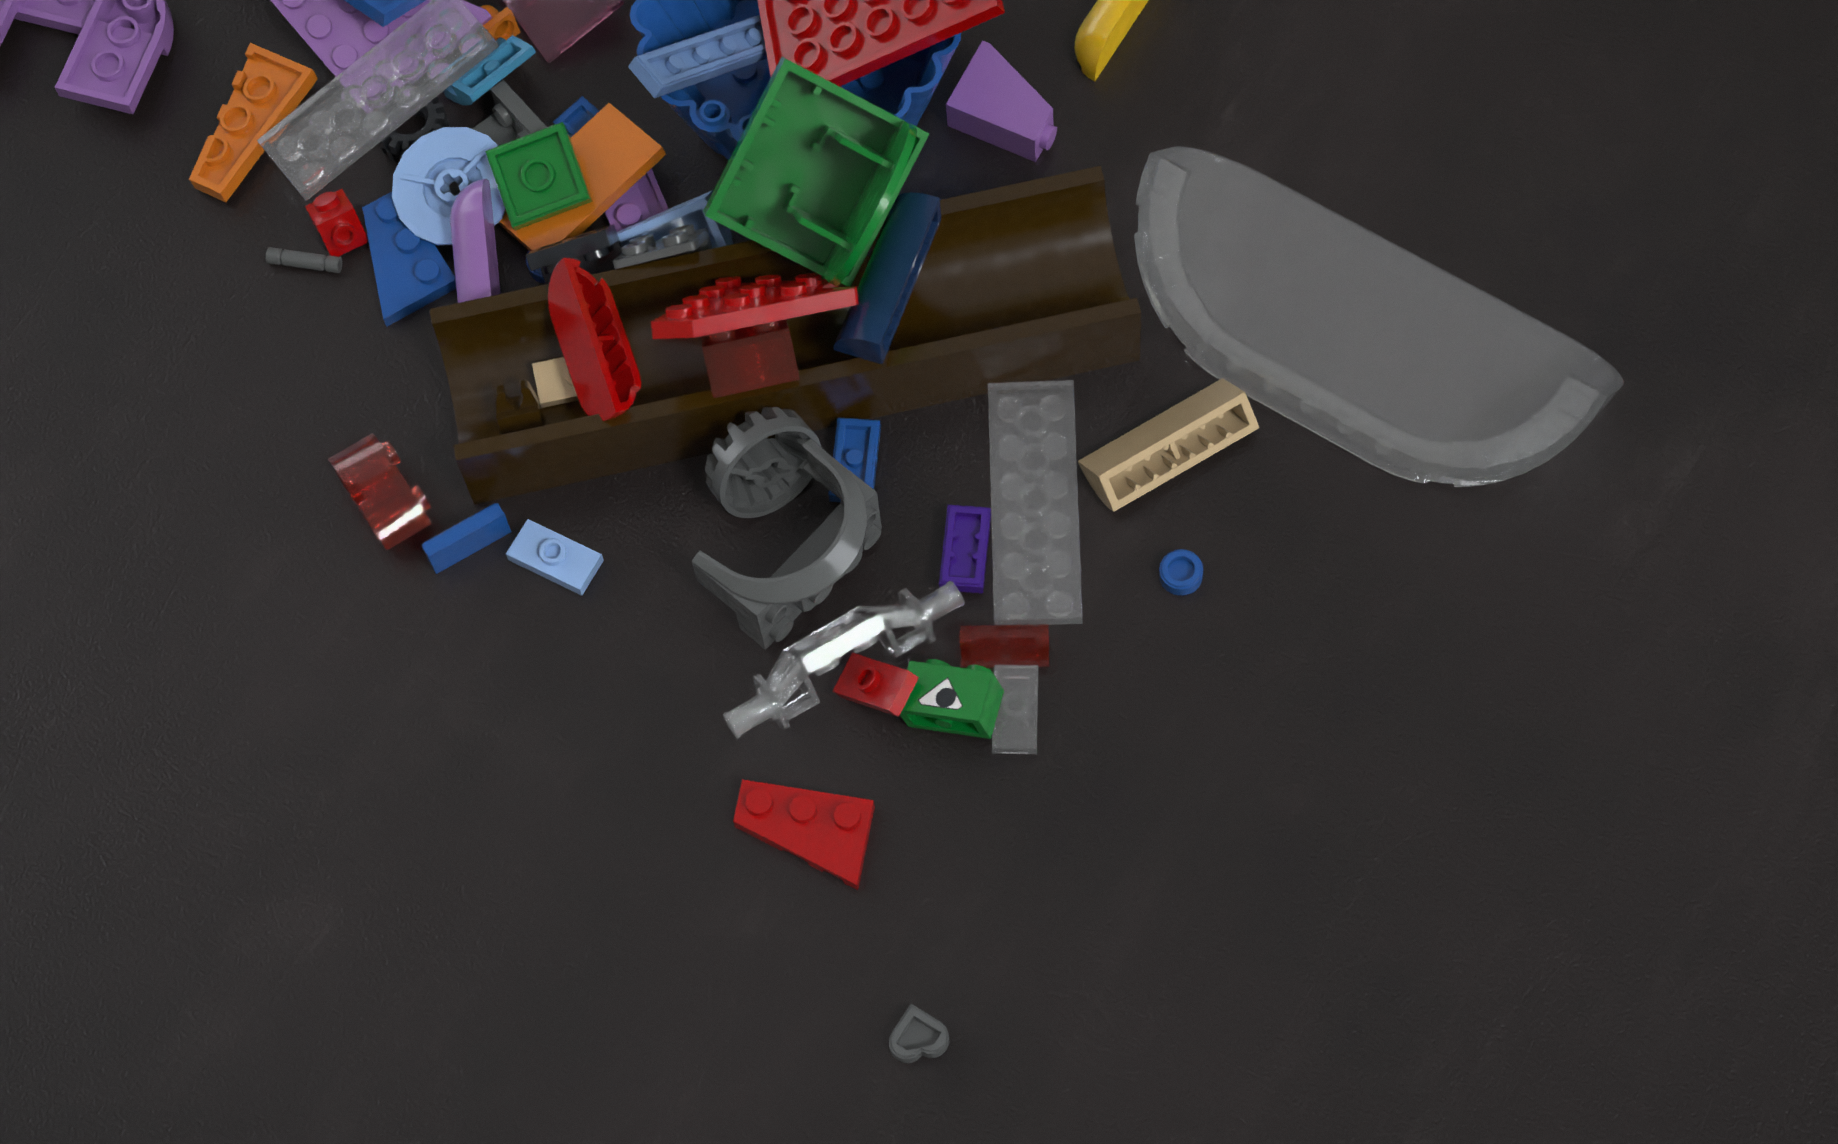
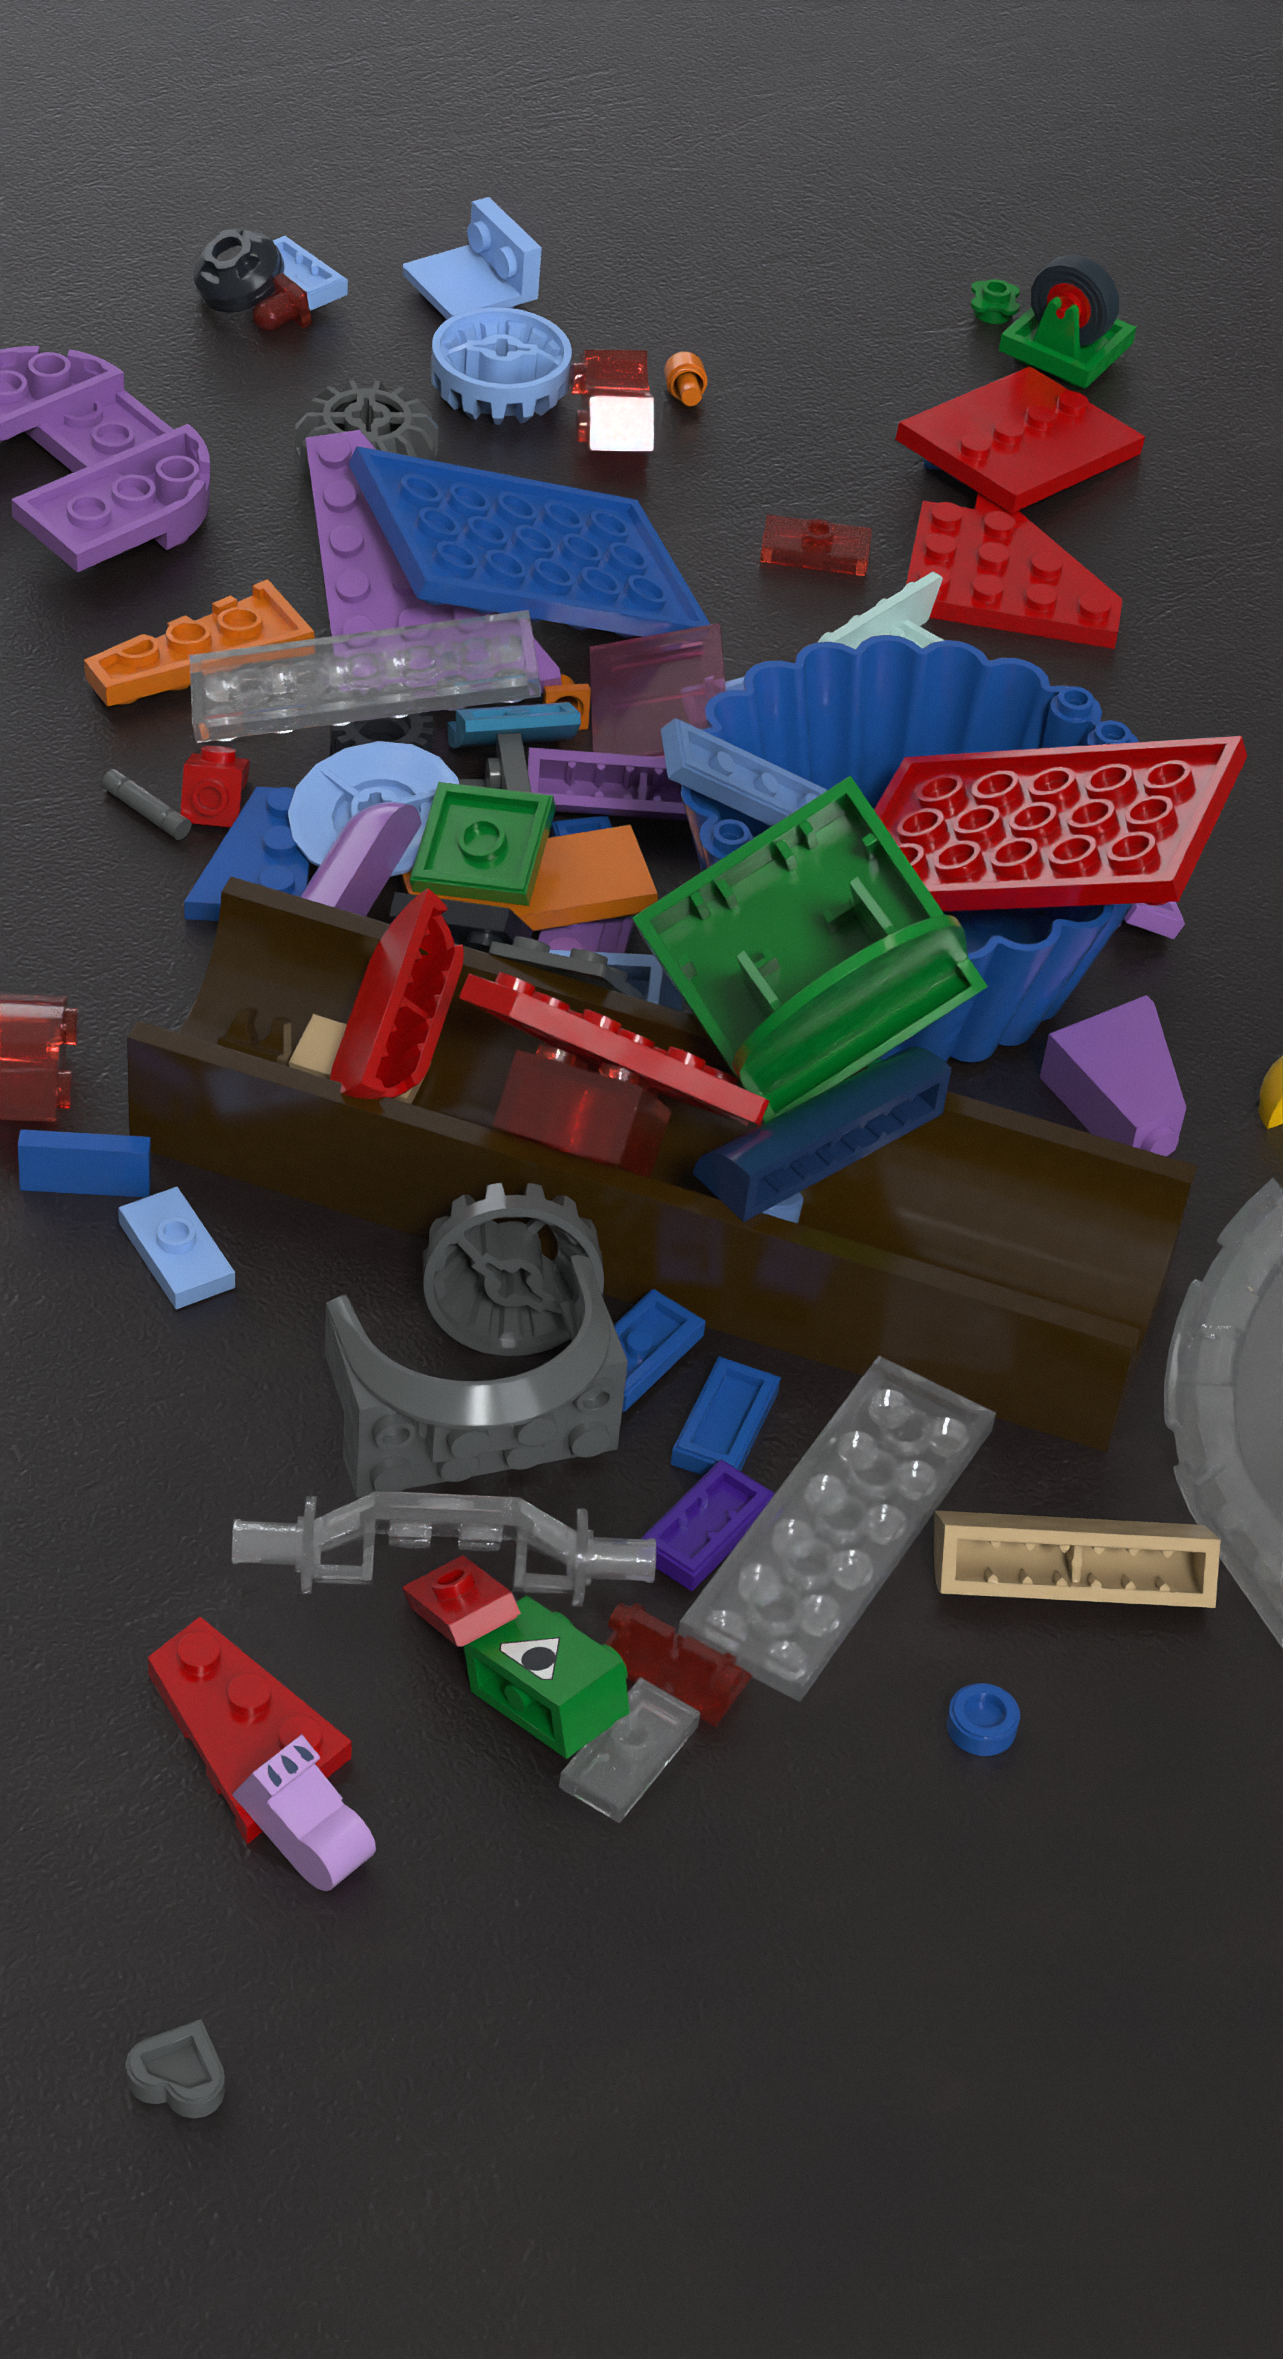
camera: 20 degrees right, 20 degrees down
(579, 72) = (606, 784): none -> medium lavender brick
(884, 860) = (306, 1816): none -> lavender leg
(928, 473) = (725, 1417): none -> blue tile

